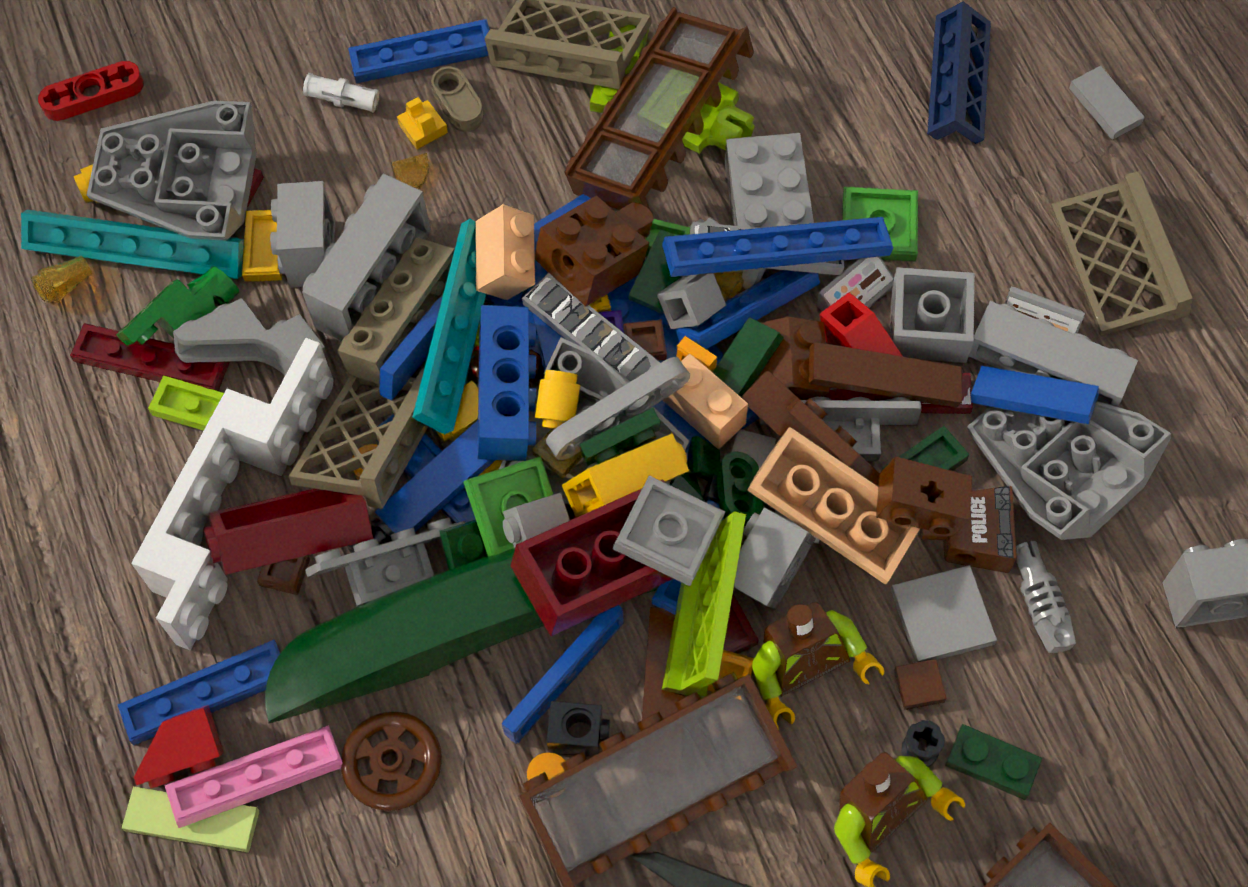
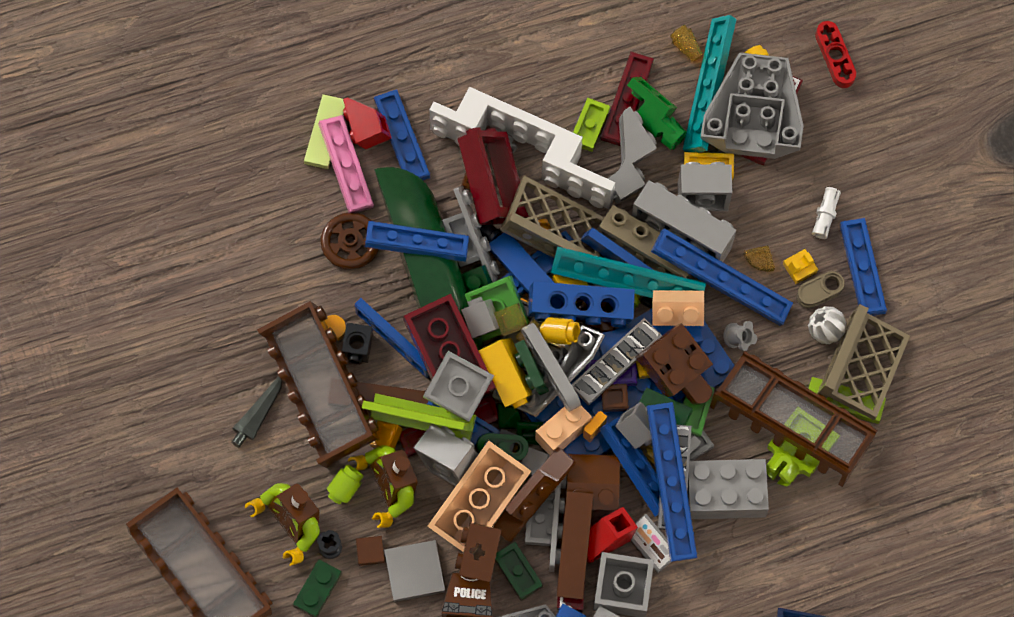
camera: 90 degrees right, 5 degrees up
(407, 630) = (416, 241): none -> blue tile
(447, 208) = (722, 277): none -> blue tile
(505, 80) = (827, 325): none -> white piece
(535, 189) = (739, 336): none -> light grey brick
(537, 478) = (510, 319): none -> clear yellow tile
(747, 356) = (592, 456): dark green tile -> none
(822, 726) = (344, 484): none -> lime brick
(896, 207) = (710, 570): bright green tile -> none

